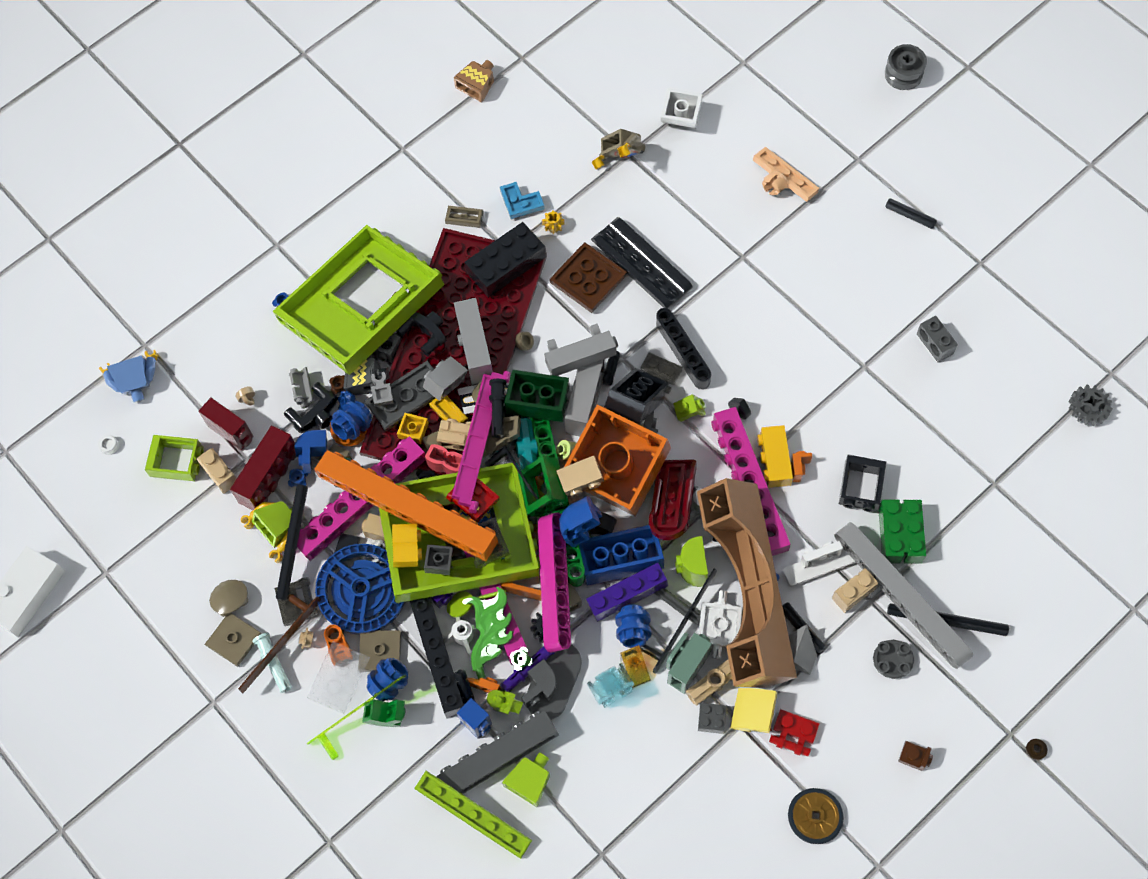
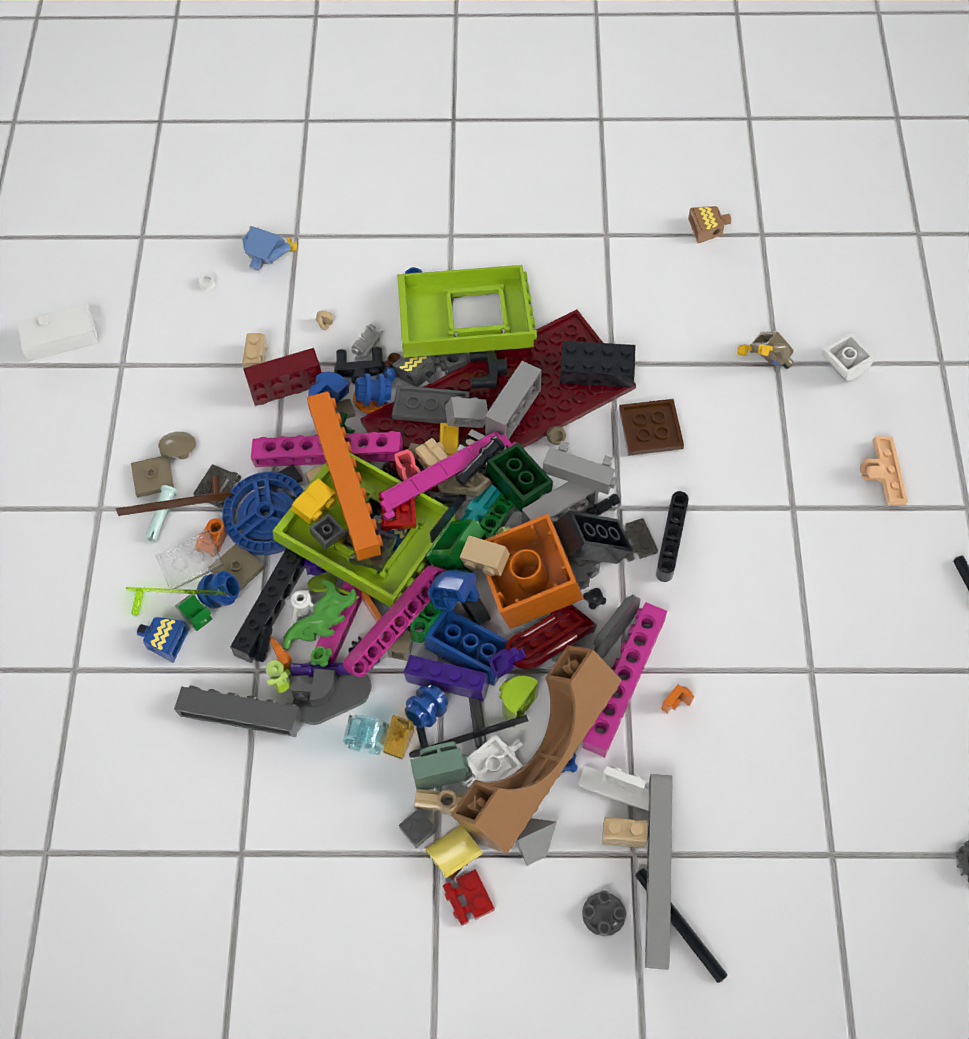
camera: 40 degrees right, 5 degrees down
(156, 452) = (228, 311): lime window -> none
(226, 424) = (289, 325): dark red brick -> none
(273, 522) = (255, 421): lime torso -> none
(291, 542) = (249, 440): black axle -> none
(293, 474) = (301, 398): blue plate -> none
(305, 638) = (197, 515): tan plate -> none
(379, 753) = (164, 636): none -> blue torso
(381, 392) = (413, 386): light grey plate -> none
(412, 426) = (411, 430): yellow piece -> none
(464, 219) = (599, 316): dark tan tile -> none
(473, 814) = (179, 737): lime tile -> none
(475, 718) = (247, 670): blue brick -> none
(520, 205) = (650, 333): dark azure plate -> none
(529, 779) = (242, 749): lime torso -> none
(553, 222) = (664, 366): yellow gear -> none
(642, 262) = (704, 449): black plate -> none
(663, 544) = (503, 661): none -> dark purple plate
(676, 438) = (596, 592): none -> black plate
(689, 407) = (633, 583): lime bracket -> none
(710, 448) = (616, 625): none -> dark grey tile
(741, 406) = (673, 617): black tile -> none
(775, 456) = (663, 676): yellow brick -> none
(798, 622) = (556, 815): black axle -> none
(815, 830) = (432, 986): pearl gold wheel -> none
(868, 466) = (729, 741): black window -> none
(902, 531) = (710, 821): green piece -> none
(915, 756) = (545, 1005): reddish brown bracket -> none
(936, 339) = (892, 696): dark grey brick -> none

